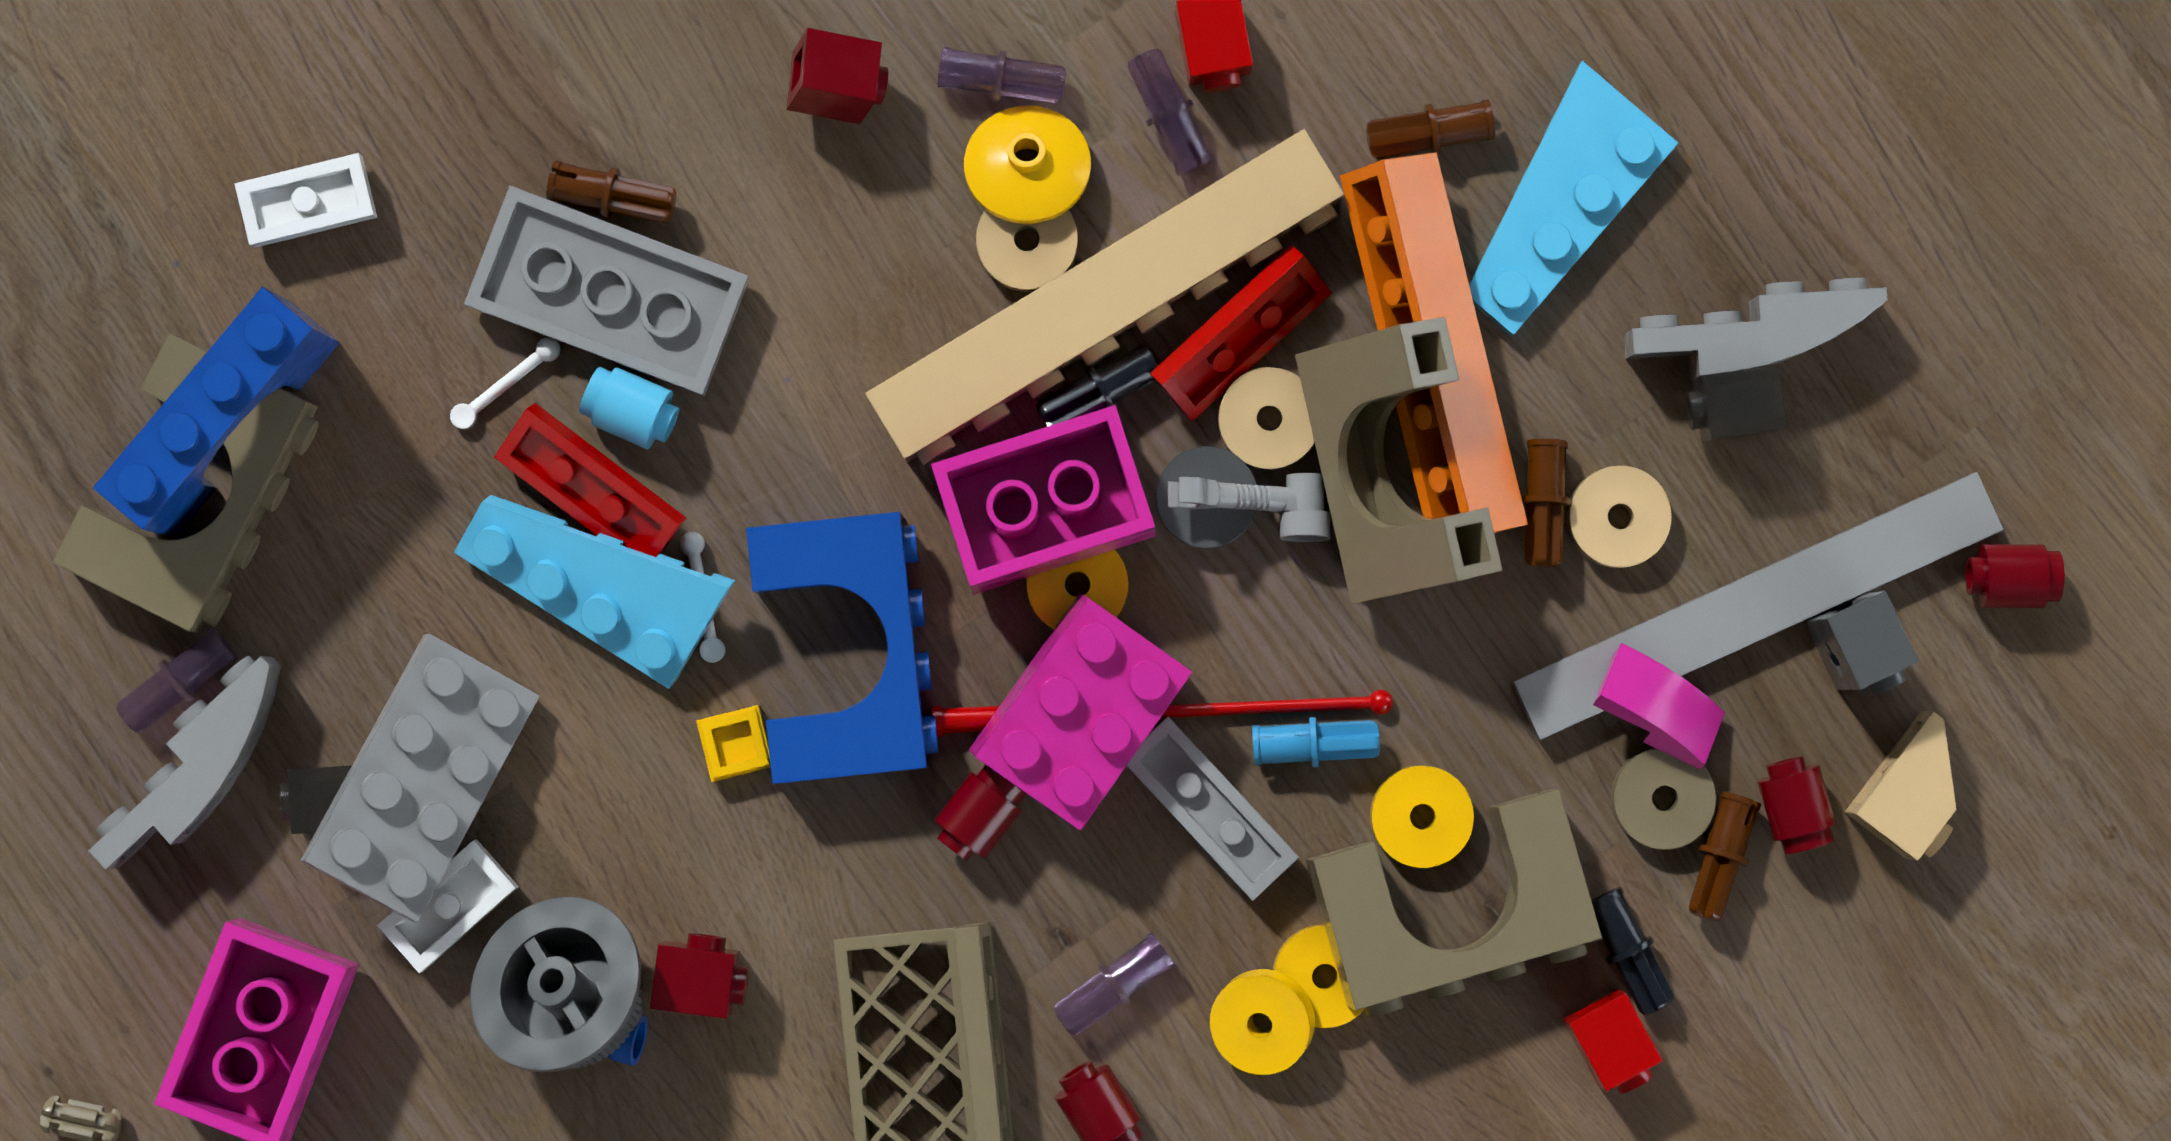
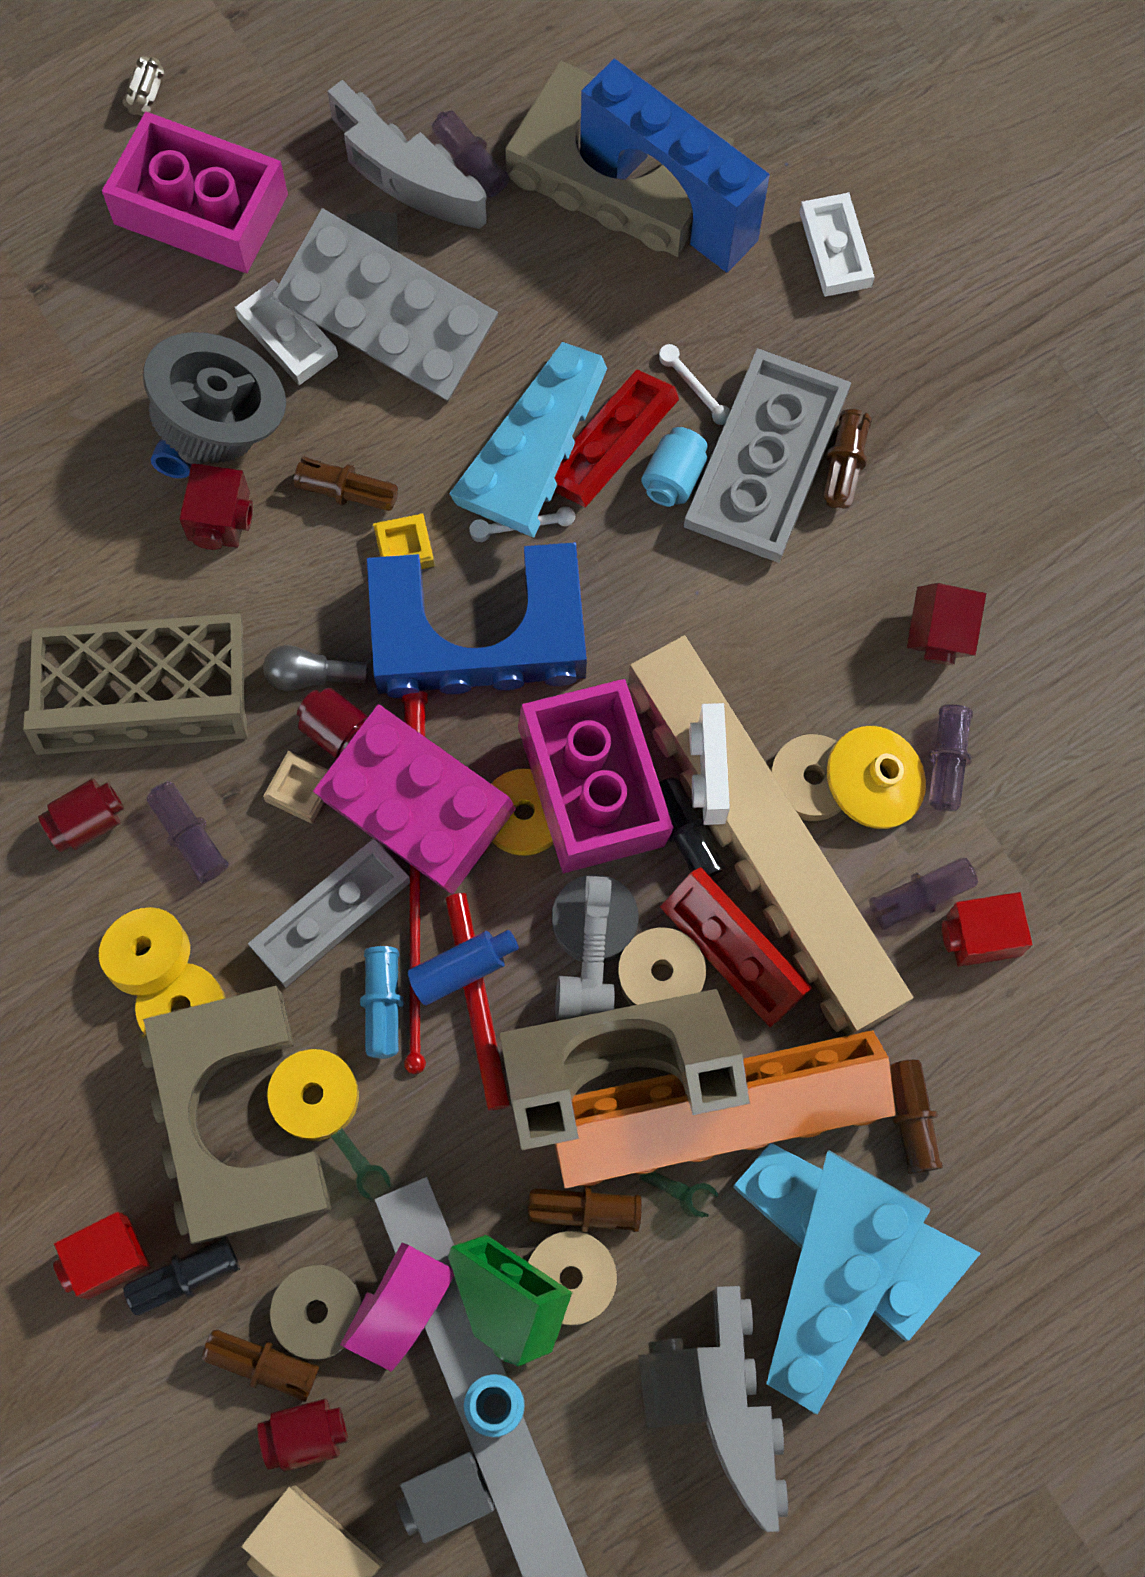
camera: 95 degrees right, 15 degrees down
(660, 818) = (344, 484): none -> reddish brown axle
(905, 868) = (295, 668): none -> flat silver piece
(1010, 363) = (711, 786): none -> white plate
(1053, 853) = (294, 786): none -> tan tile
(1275, 650) = (461, 965): none -> blue cylinder
(1307, 632) = (479, 1011): none -> red bar
(1500, 759) = (359, 1163): none -> clear green hand
(1521, 392) = (680, 1191): none -> clear green hand
(1605, 211) = (844, 1268): none -> medium azure wing
(1649, 585) = (508, 1300): none -> green slope
(1787, 594) = (475, 1400): none -> medium azure brick

